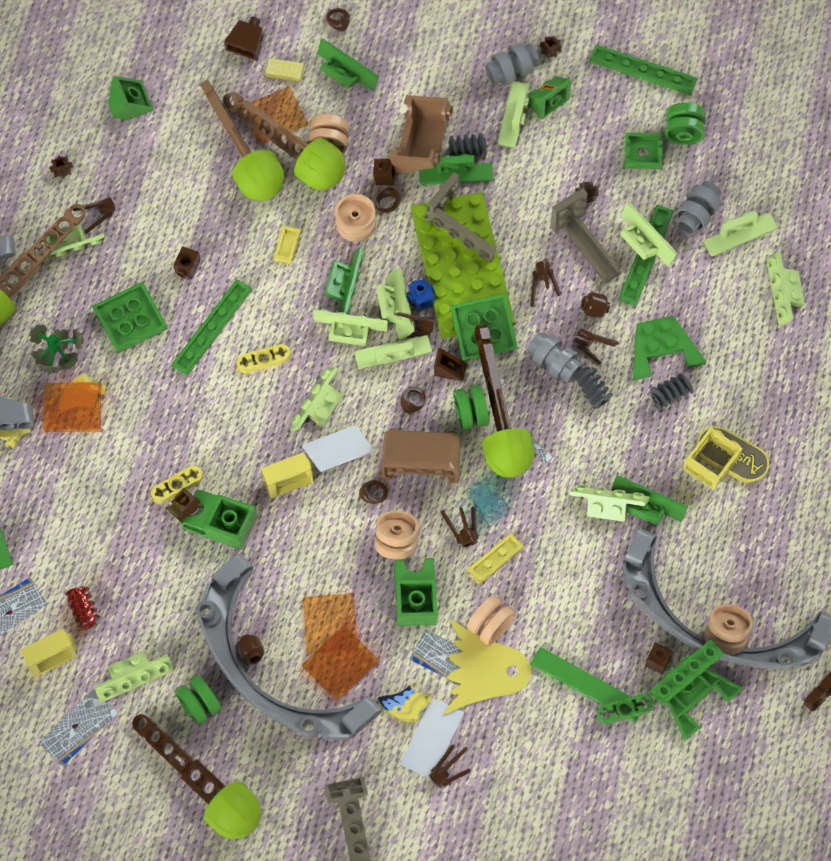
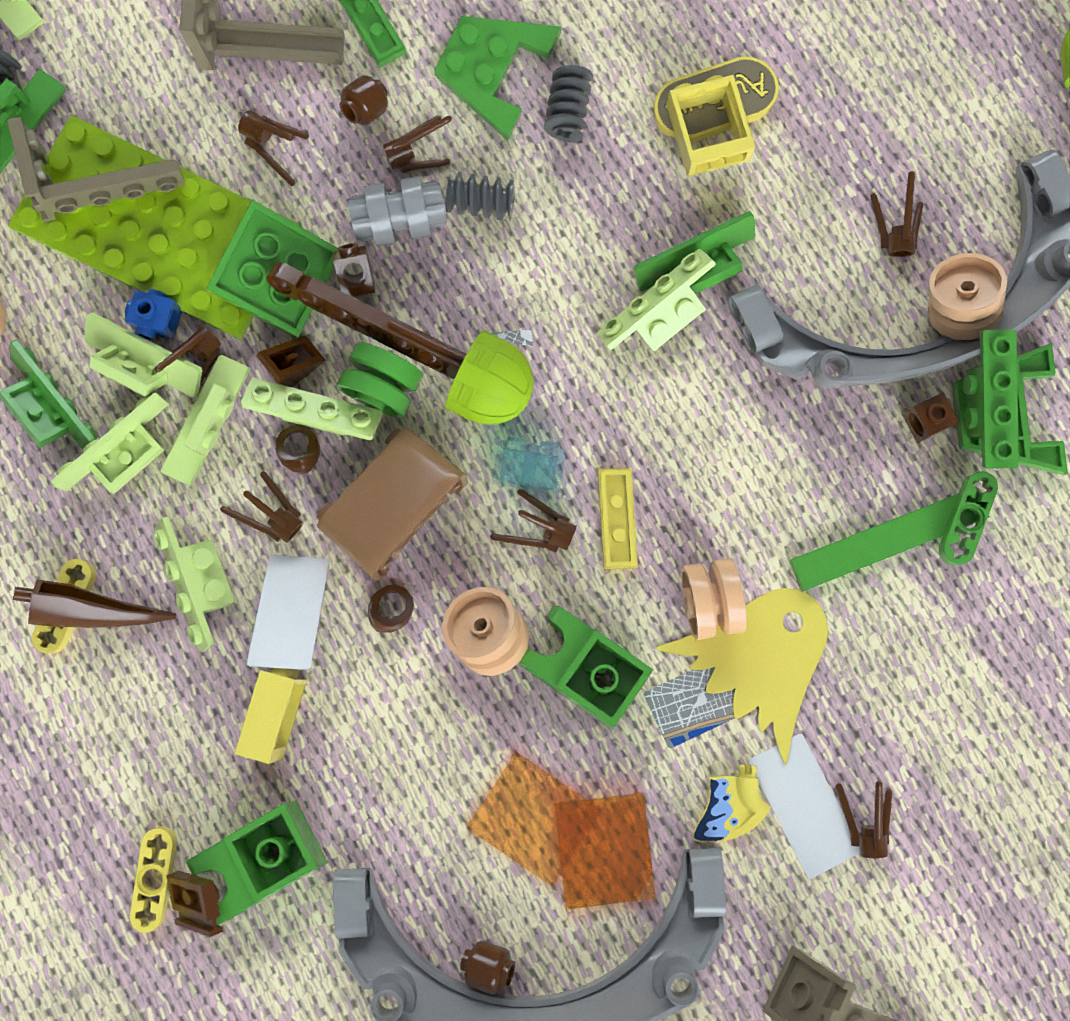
camera: 55 degrees left, 15 degrees up
(267, 362) = (73, 606): none -> reddish brown piece
(374, 419) = (283, 523): none -> reddish brown plant
(433, 389) = (311, 409): none -> yellowish green bracket
(506, 365) = (354, 284): none -> reddish brown brick
(735, 585) = (903, 238): none -> reddish brown plant

